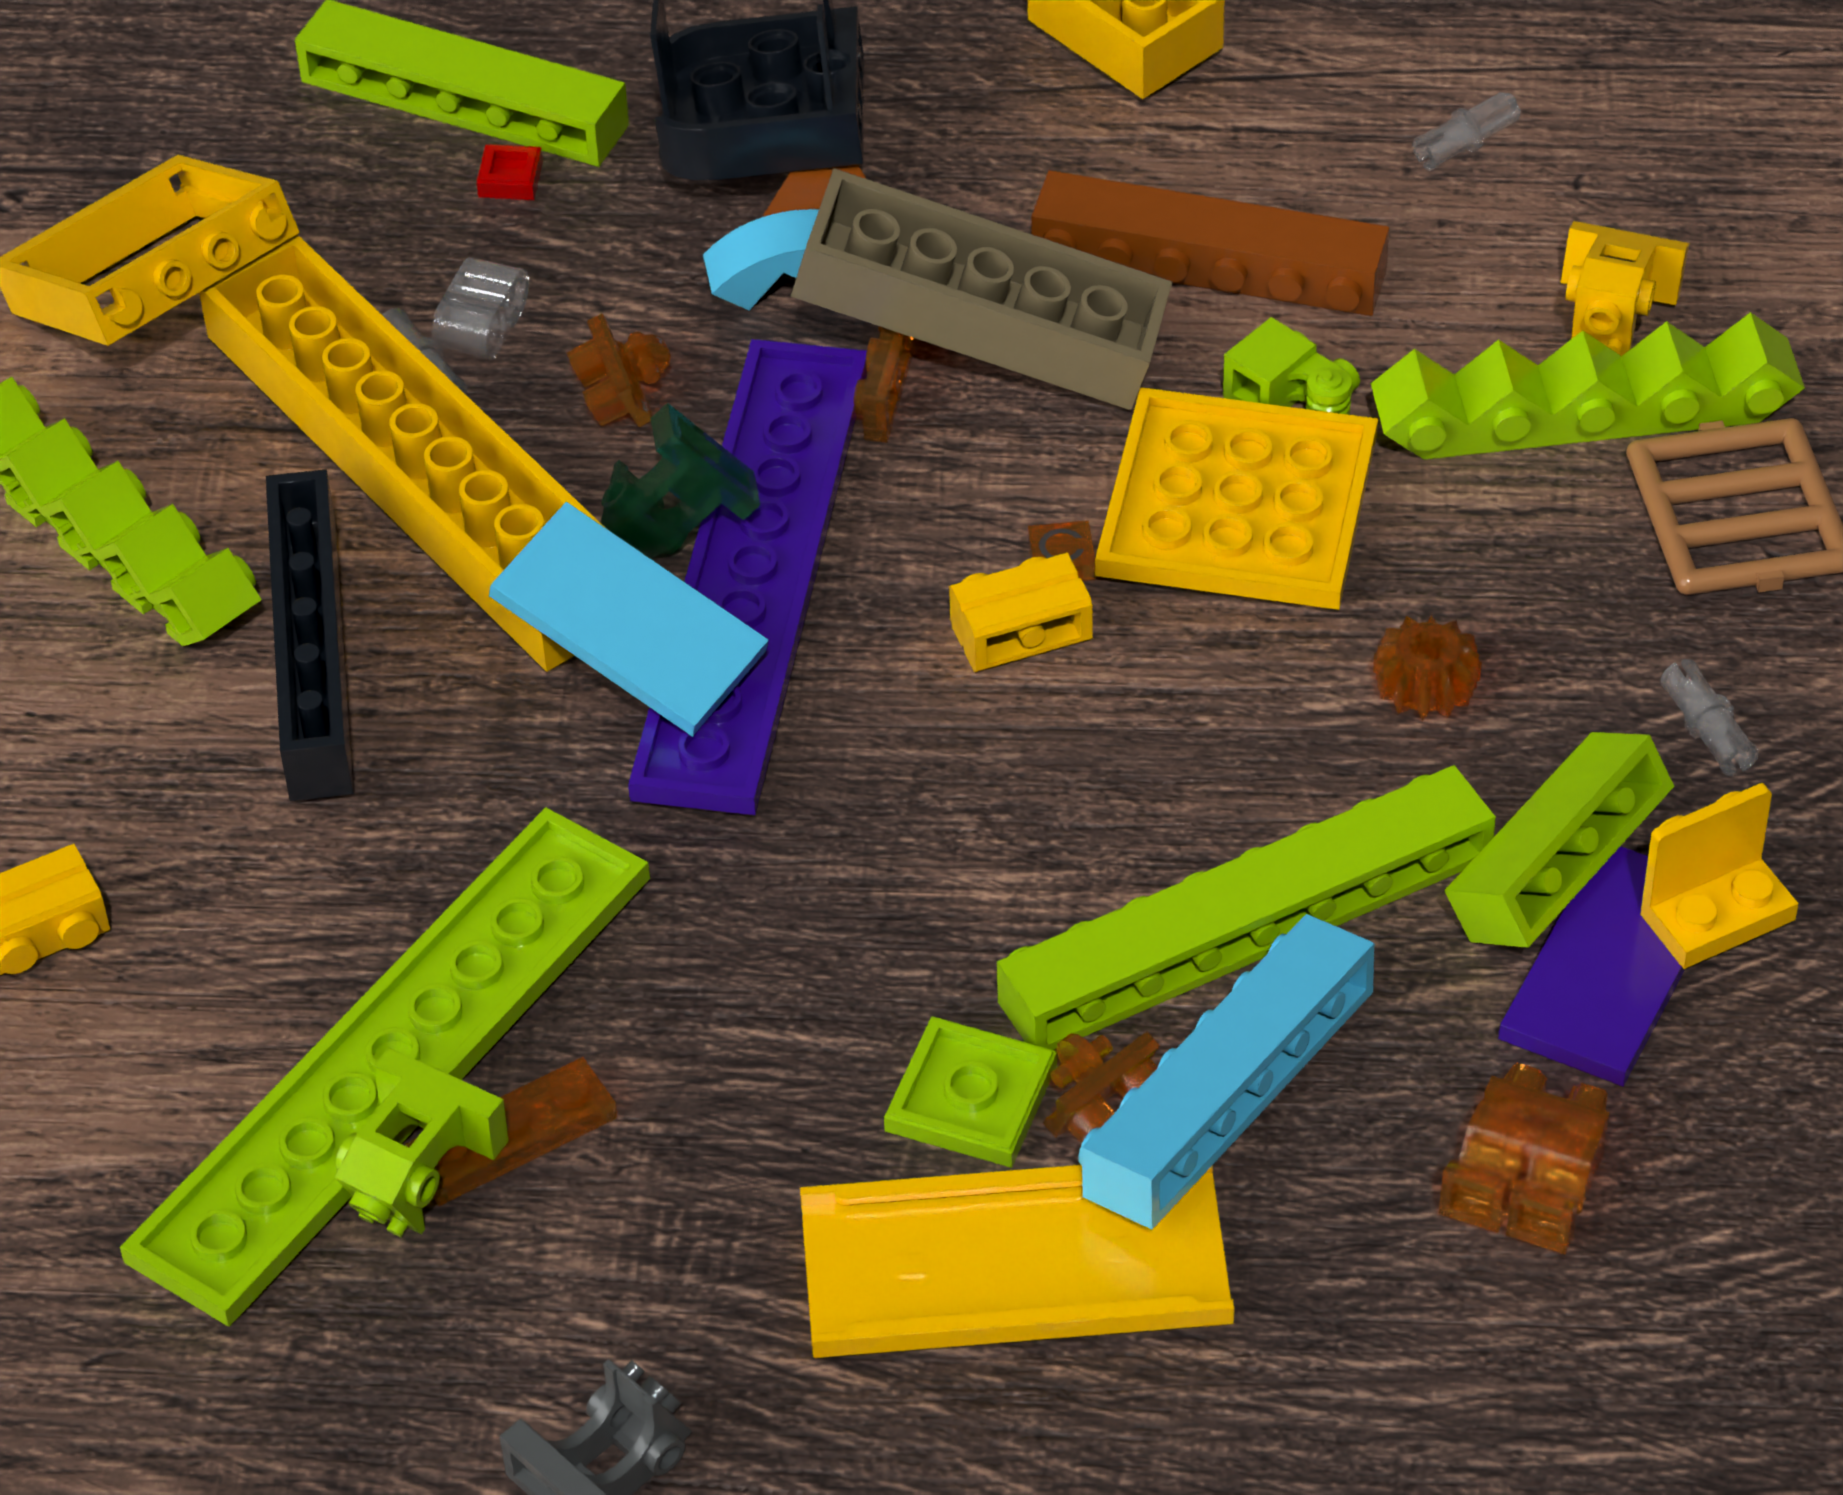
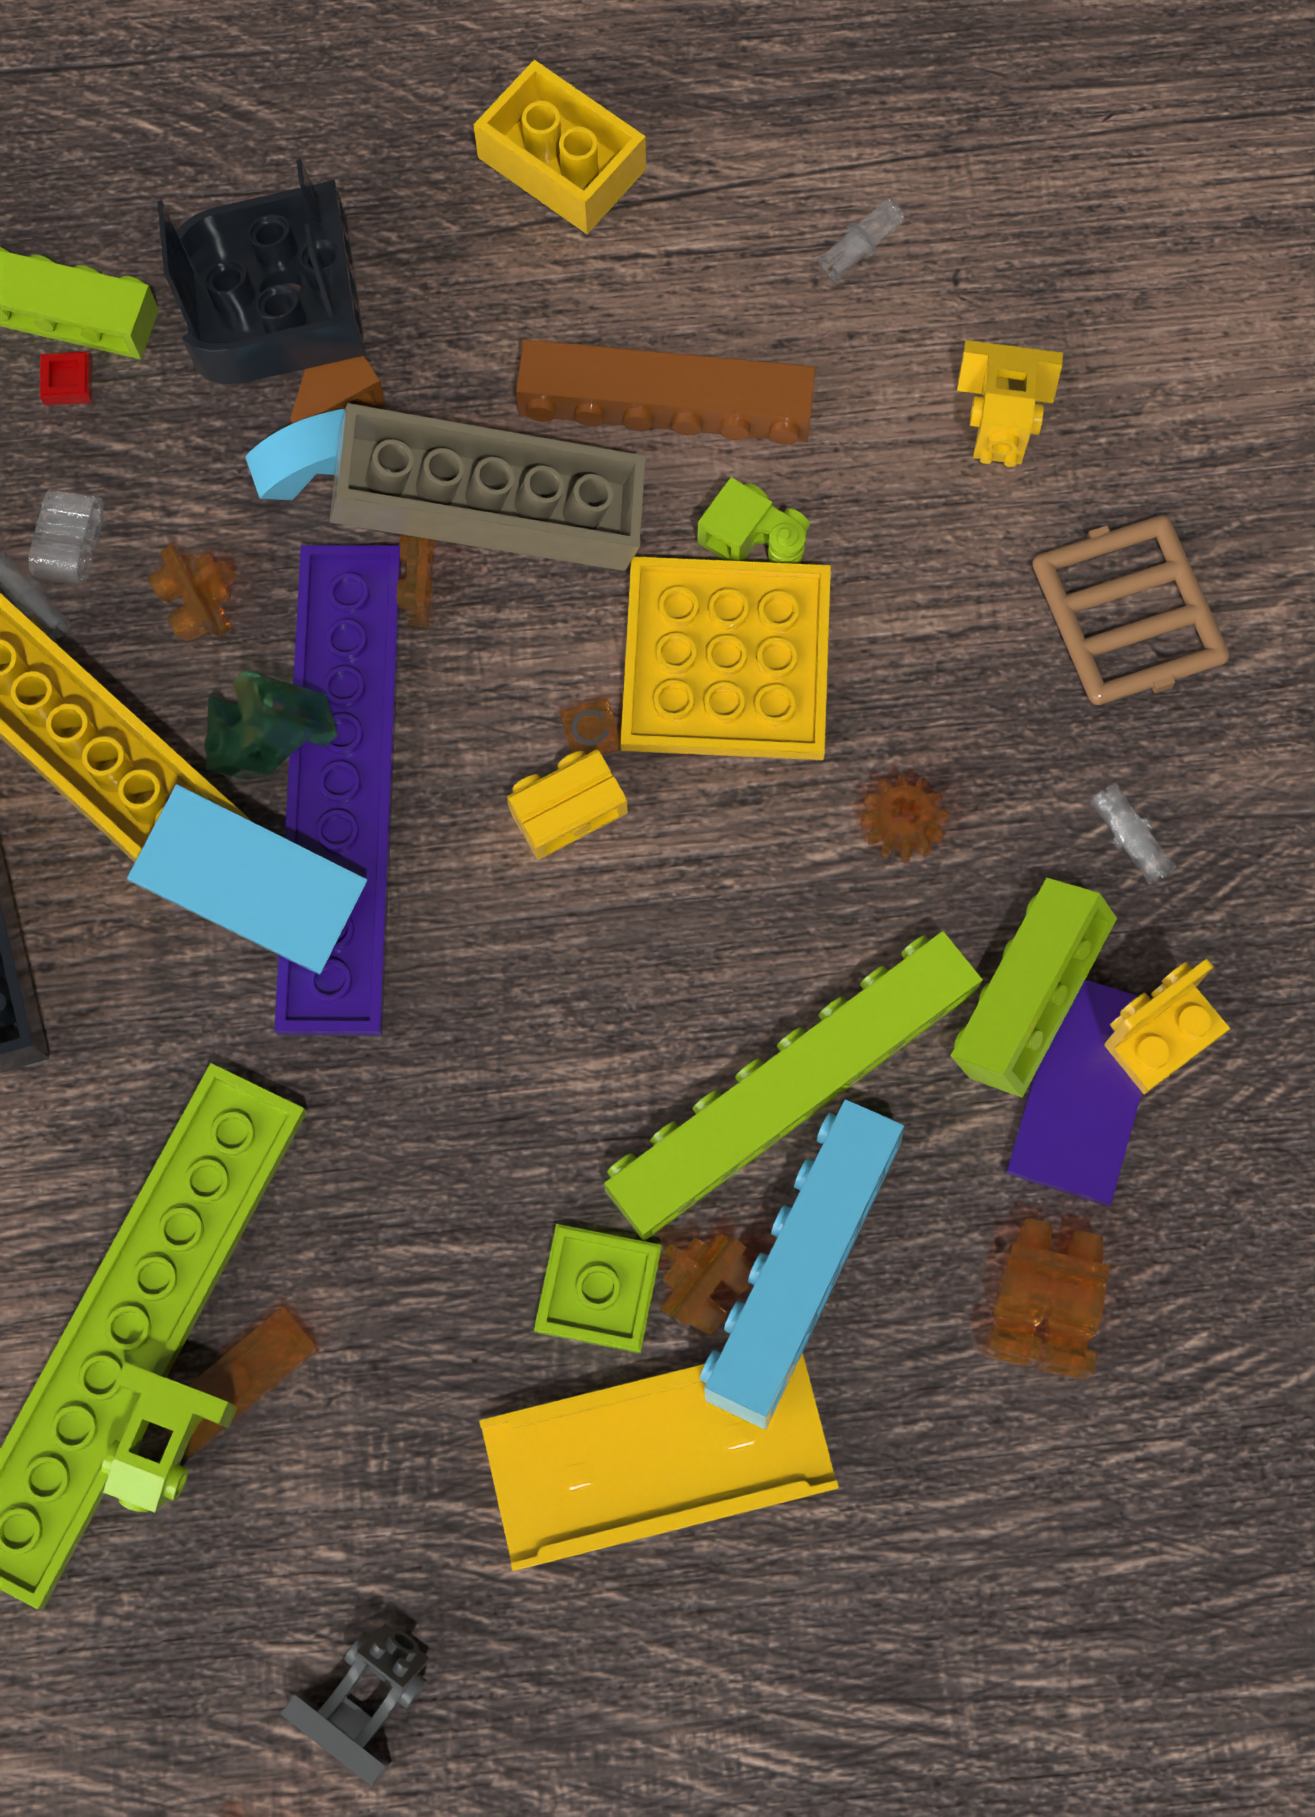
camera: 10 degrees left, 25 degrees up
(1586, 391) = (996, 514): lime brick -> none

